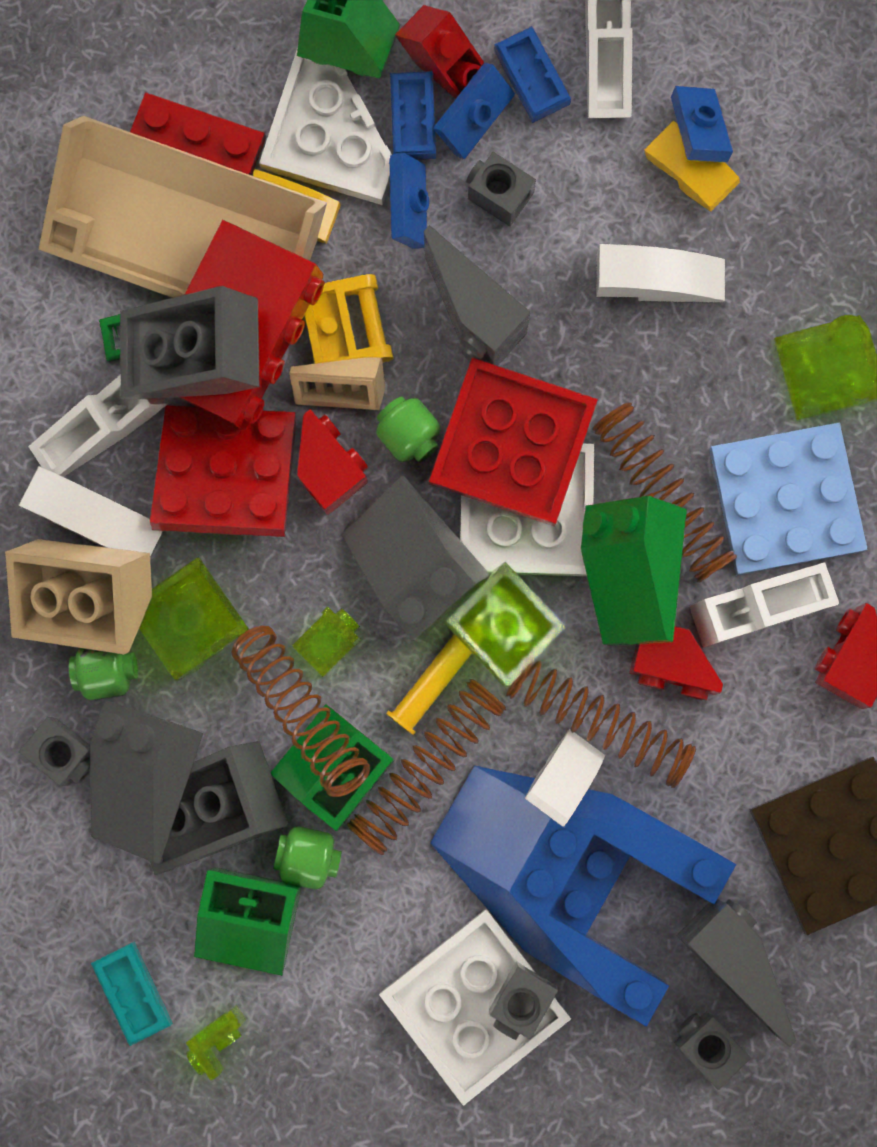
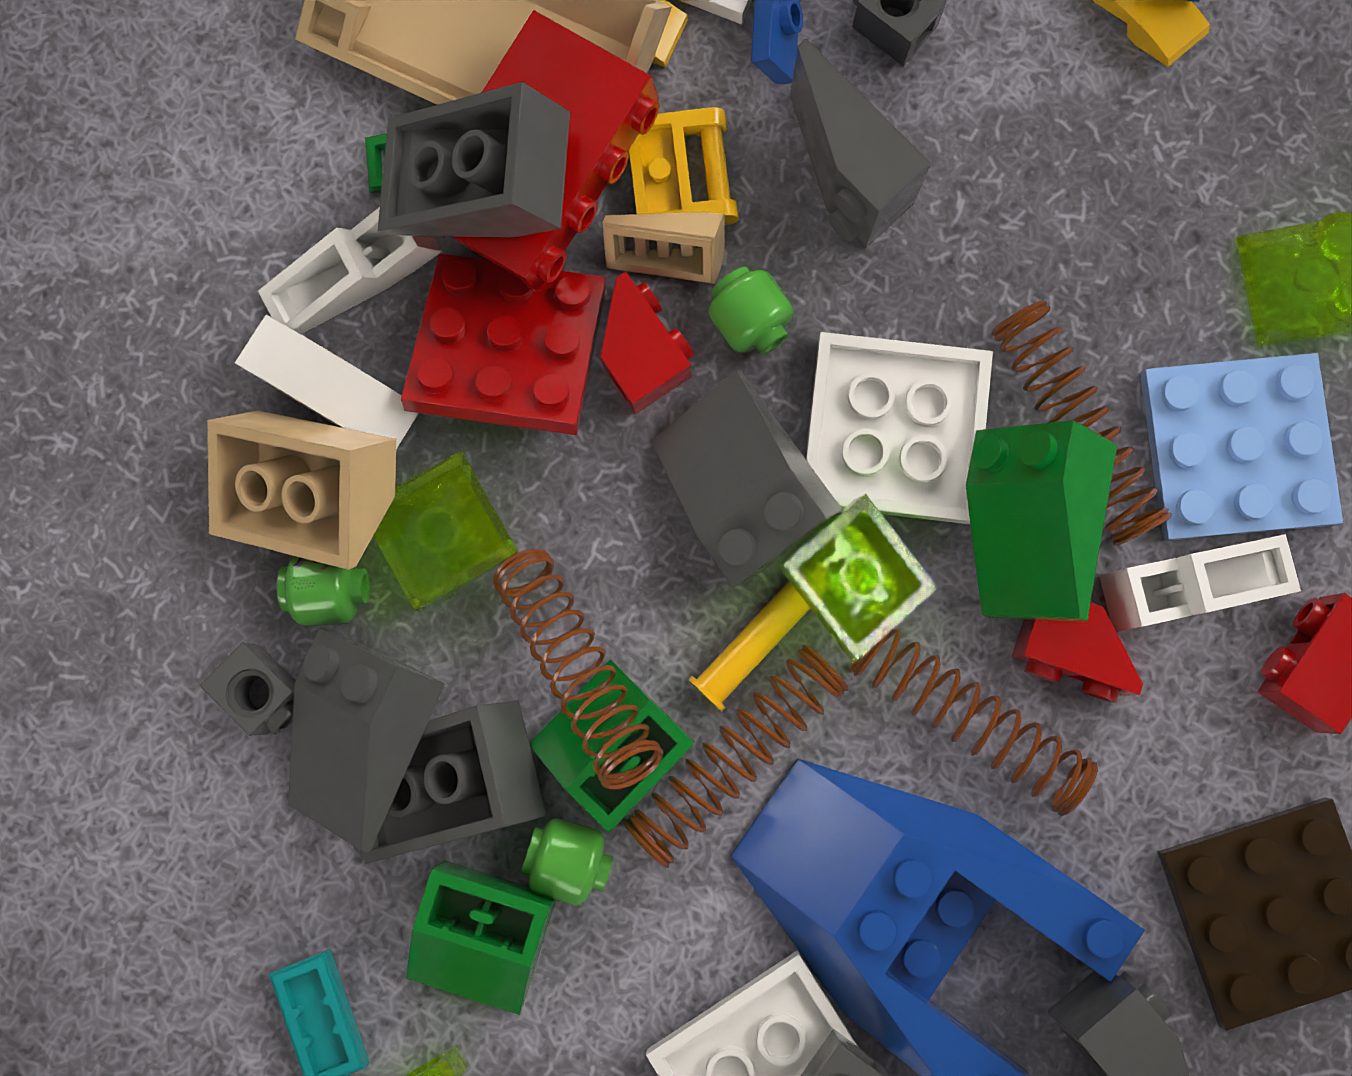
camera: 10 degrees right, 0 degrees up
(328, 640) = (621, 576): clear neon green bracket -> none
(513, 441) = (889, 337): red plate -> none
(565, 777) = (923, 792): white slope -> none
(659, 274) = (1093, 139): white slope -> none

